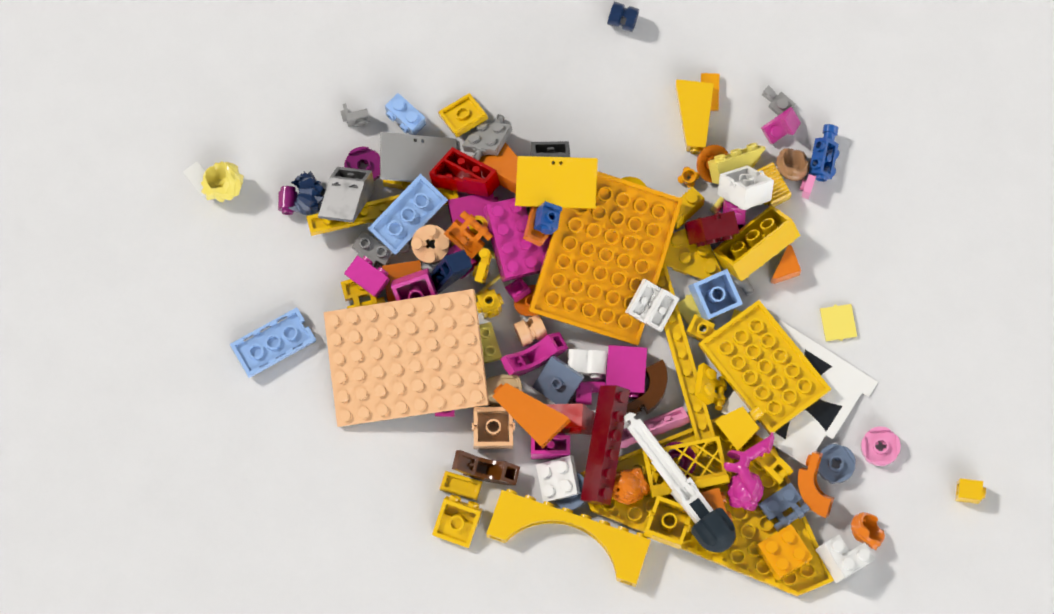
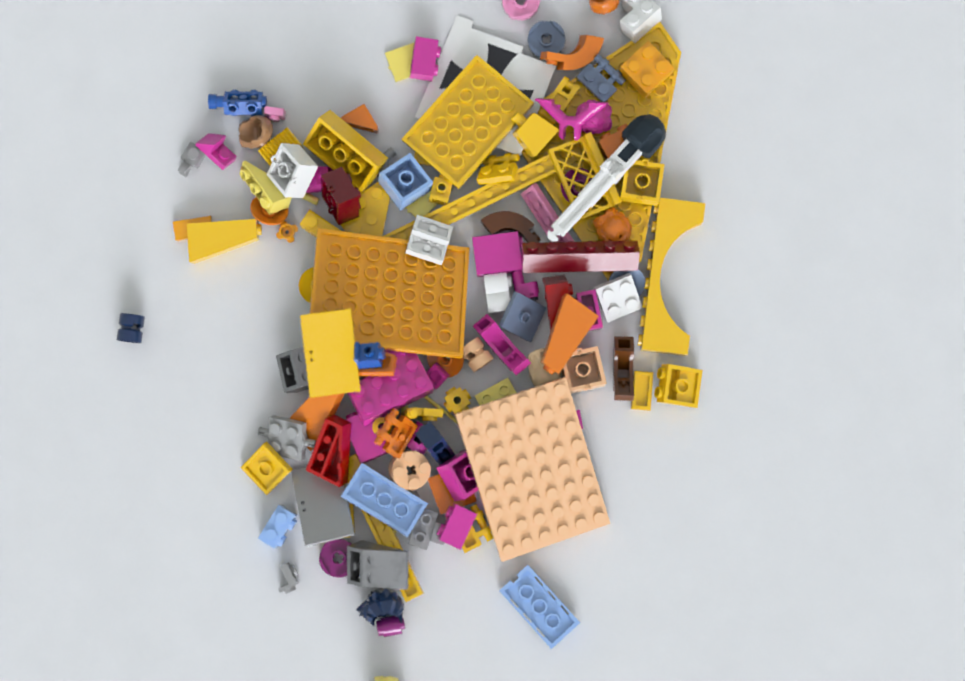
camera: 105 degrees left, 10 degrees up
(836, 338) = (424, 59): none -> dark pink brick

